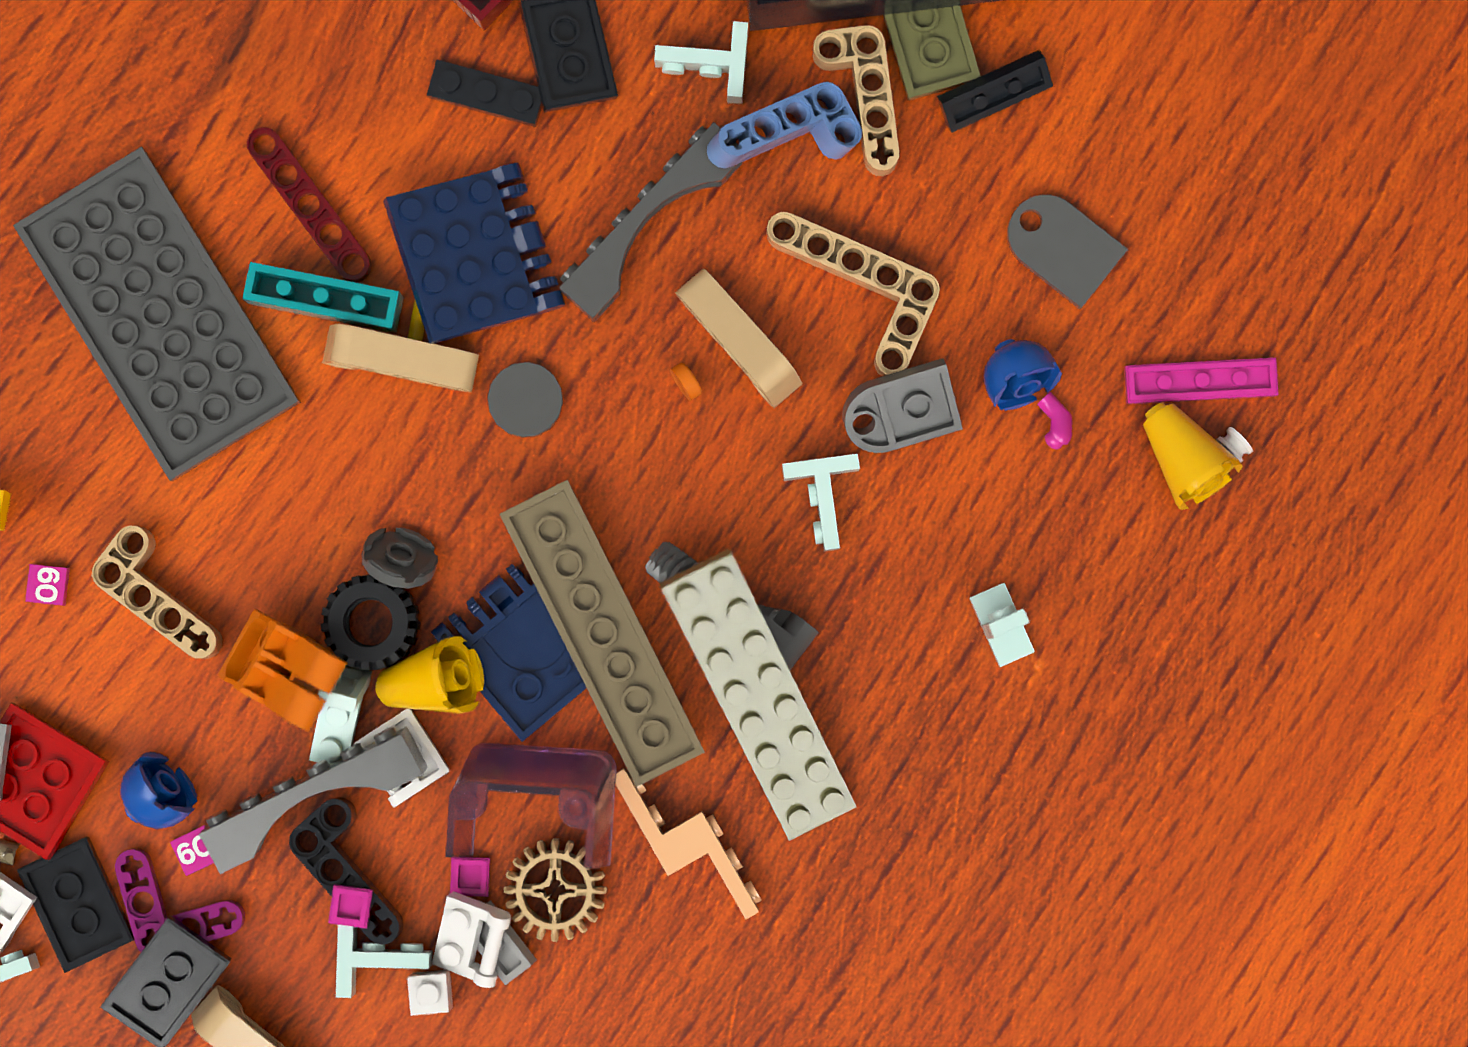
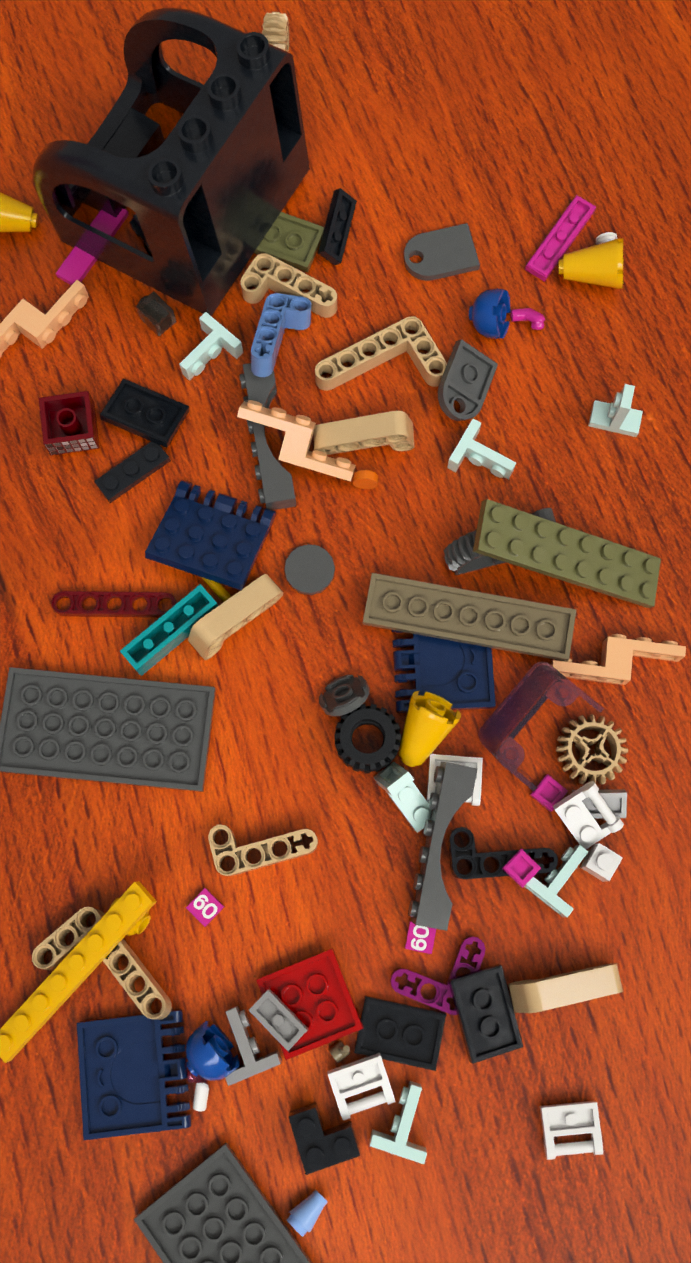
camera: 55 degrees left, 10 degrees down
(155, 793) = (372, 934): blue cylinder -> none
(282, 669) = (360, 801): orange connector -> none
(664, 265) = (297, 440): none -> light nougat bracket

